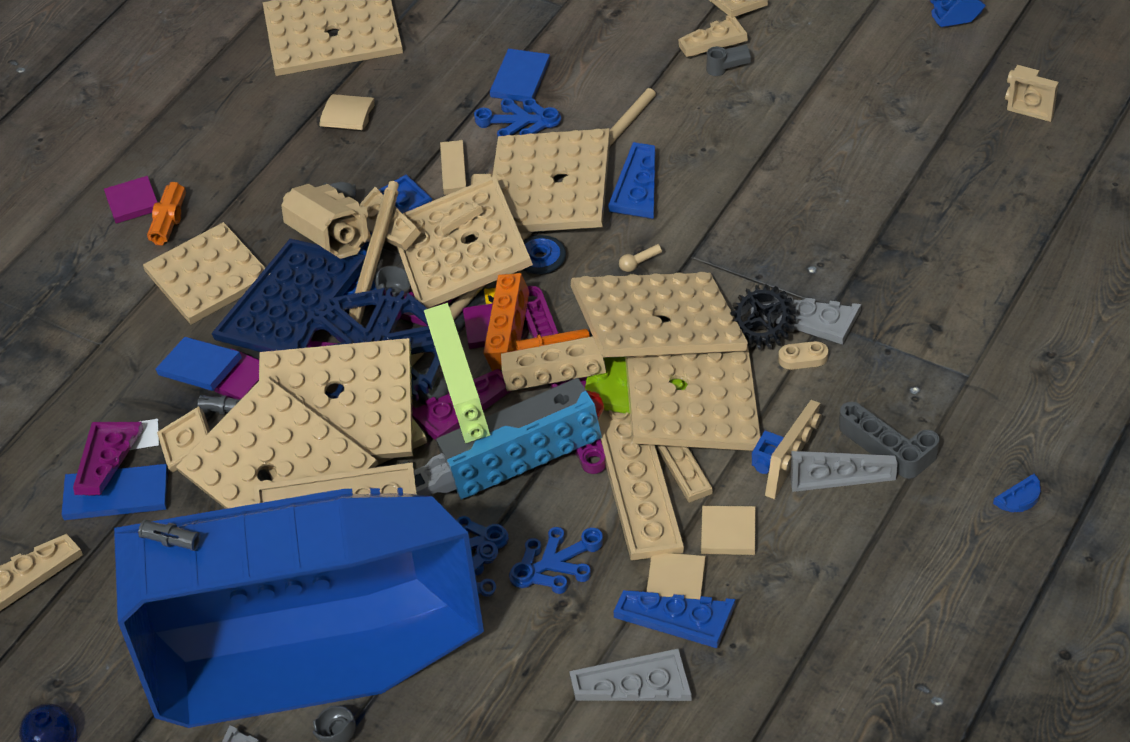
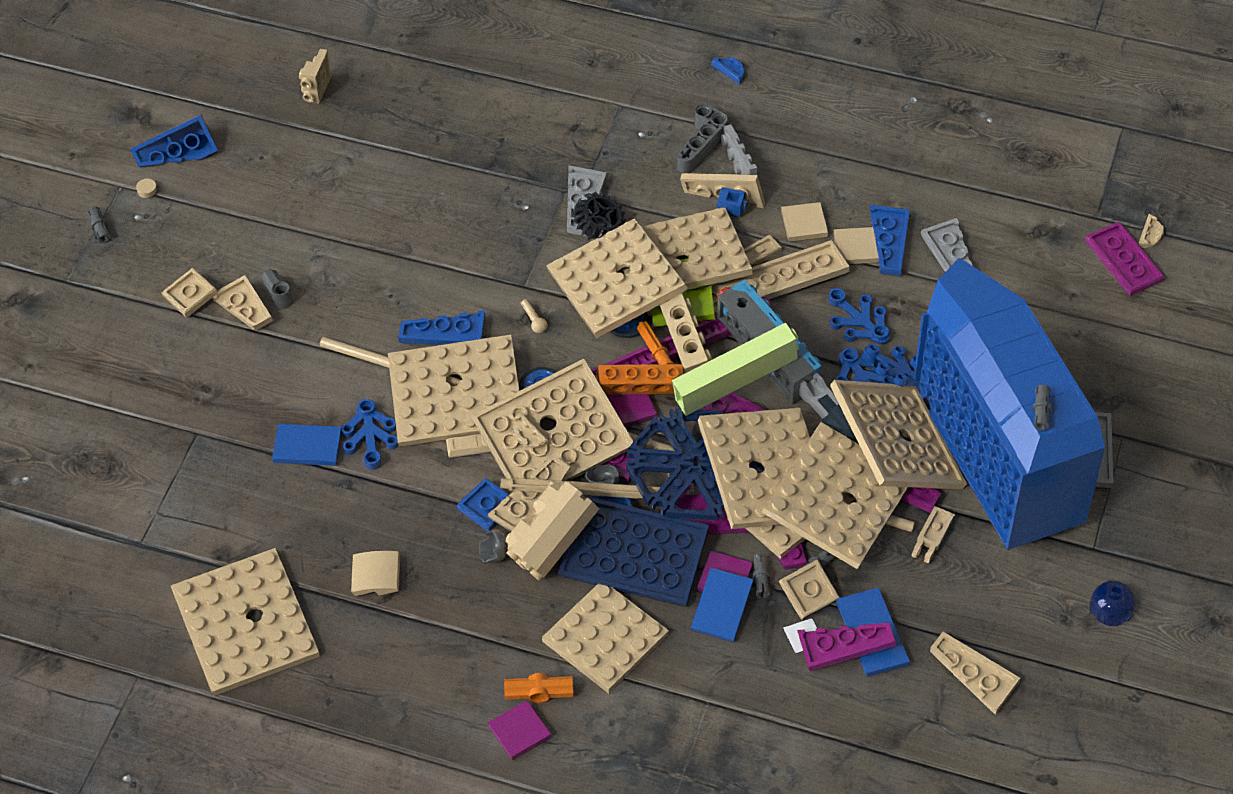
camera: 105 degrees left, 5 degrees up
(453, 166) = (440, 471): tan tile -> none
(803, 355) = (623, 195): tan plate -> none

